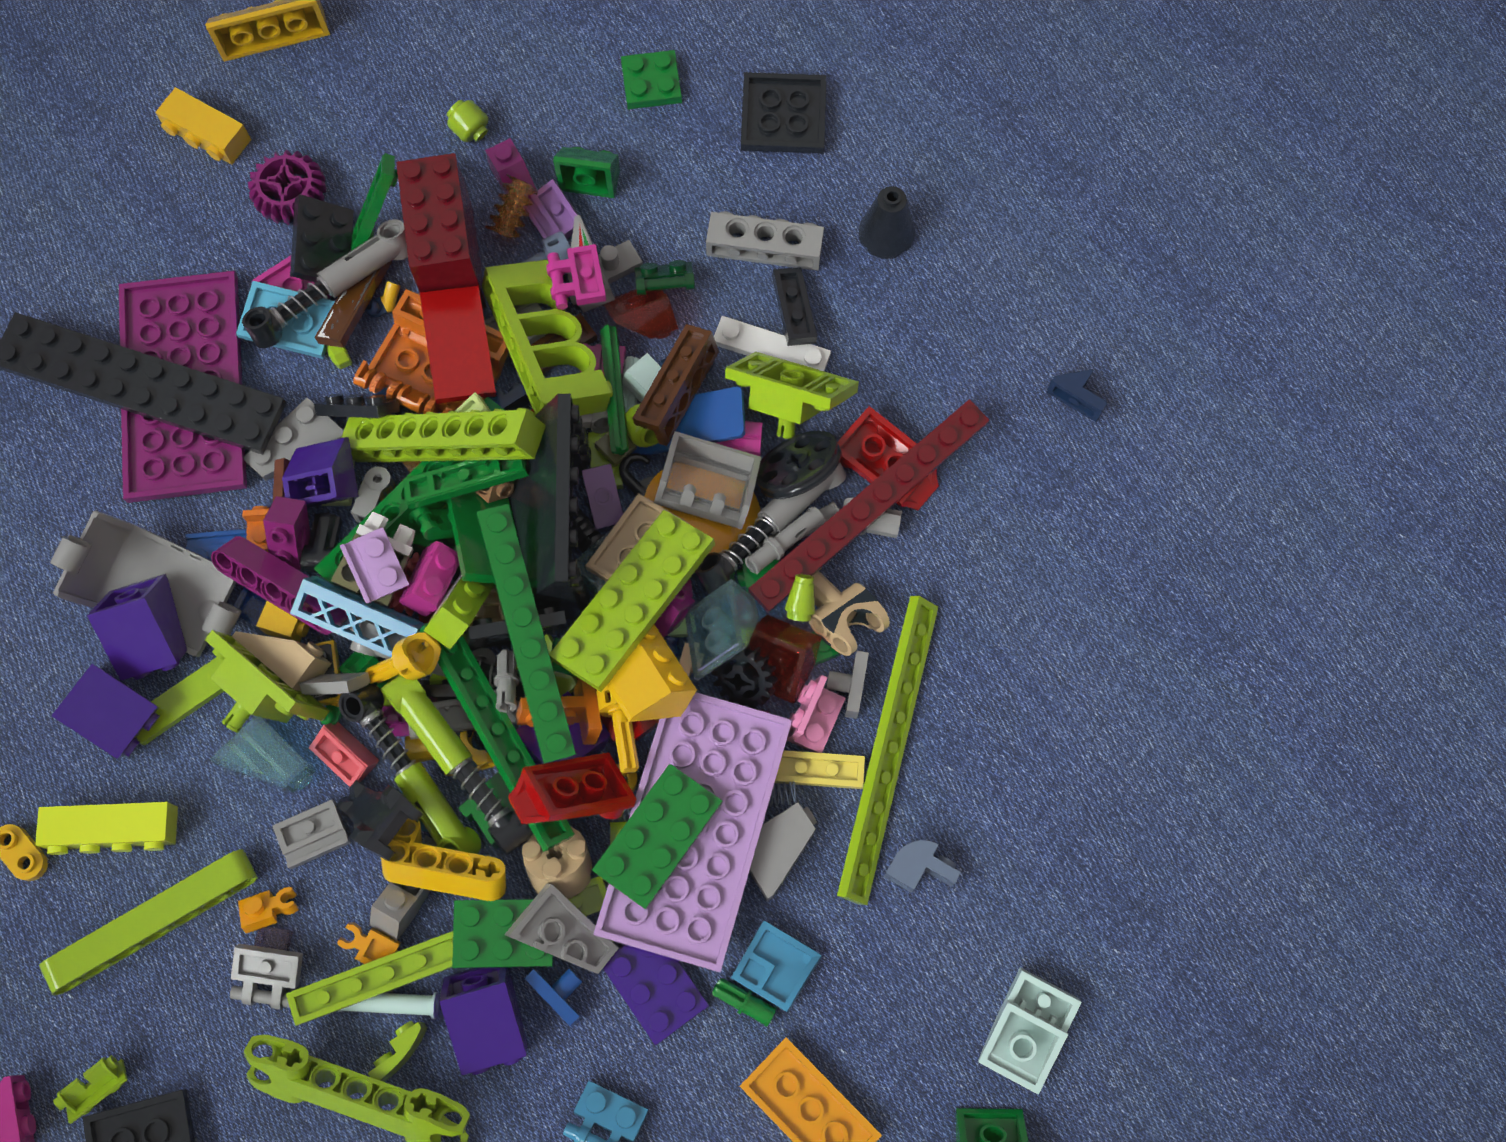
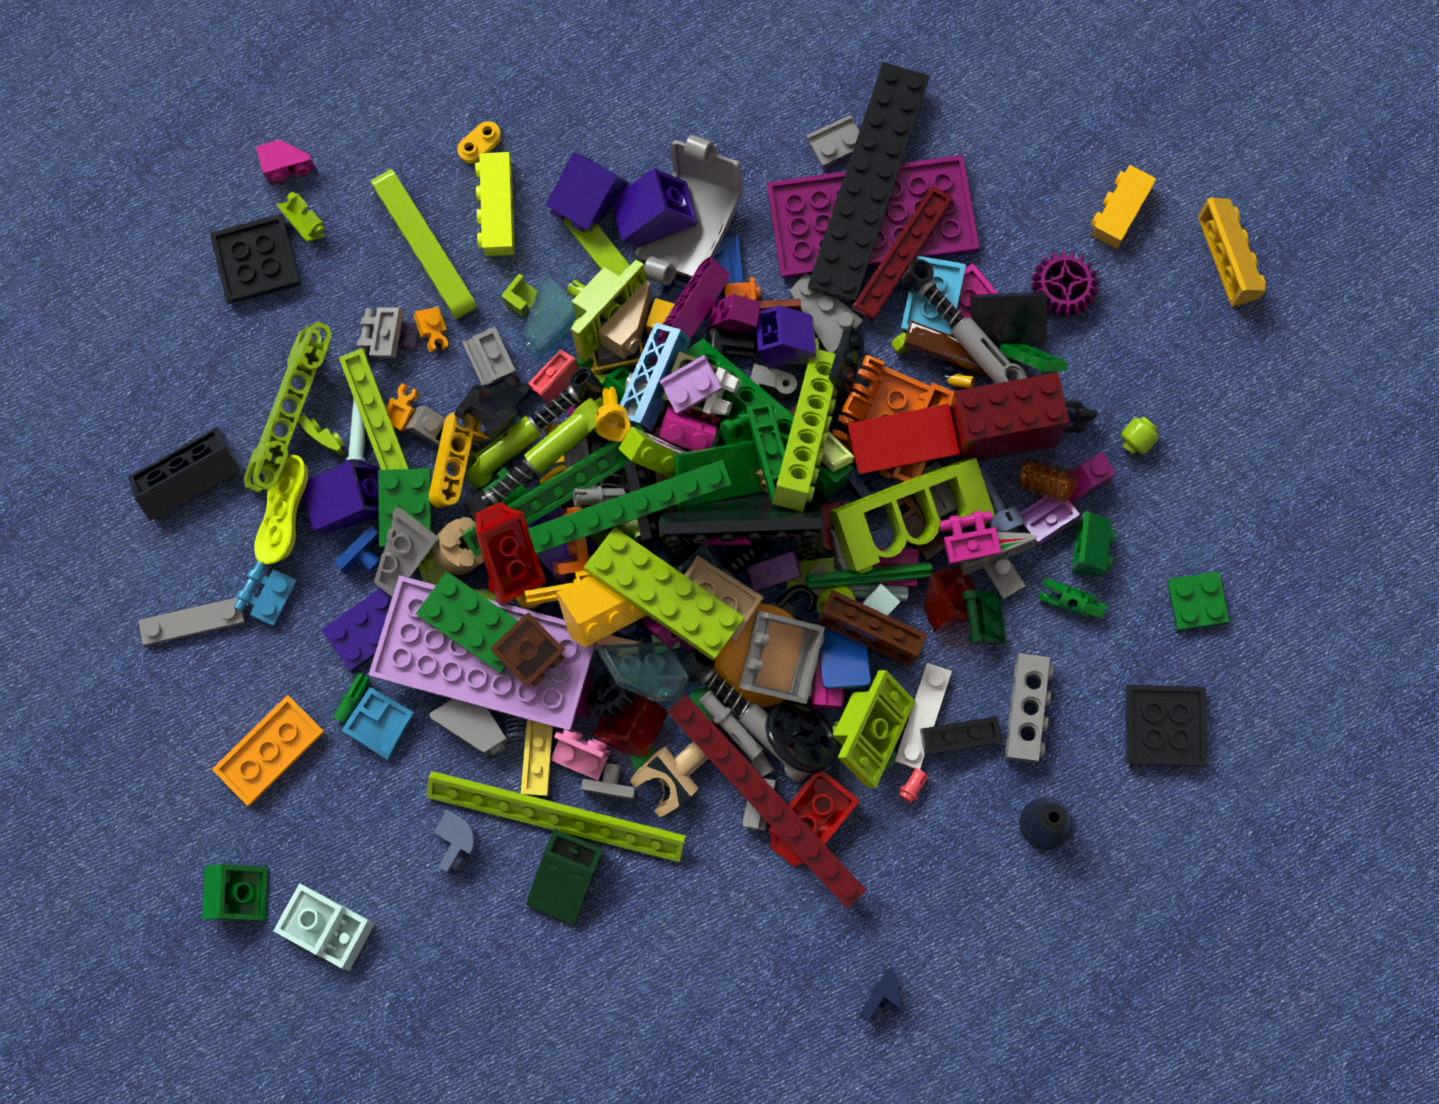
camera: 95 degrees right, 5 degrees up
(82, 425) = (834, 141): none -> light grey plate
(231, 348) = (902, 253): none -> dark red tile
(236, 796) = (519, 296): none -> lime panel
(335, 683) = (601, 363): light grey tile -> none
(523, 1106) = (278, 528): none -> neon yellow plate
(646, 193) = (1084, 604): none -> green hinge
(697, 762) = (528, 650): none -> reddish brown plate
(801, 599) = (675, 738): lime cone -> none
(855, 361) = (913, 786): none -> coral pin
(960, 733) = (564, 876): none -> dark green slope

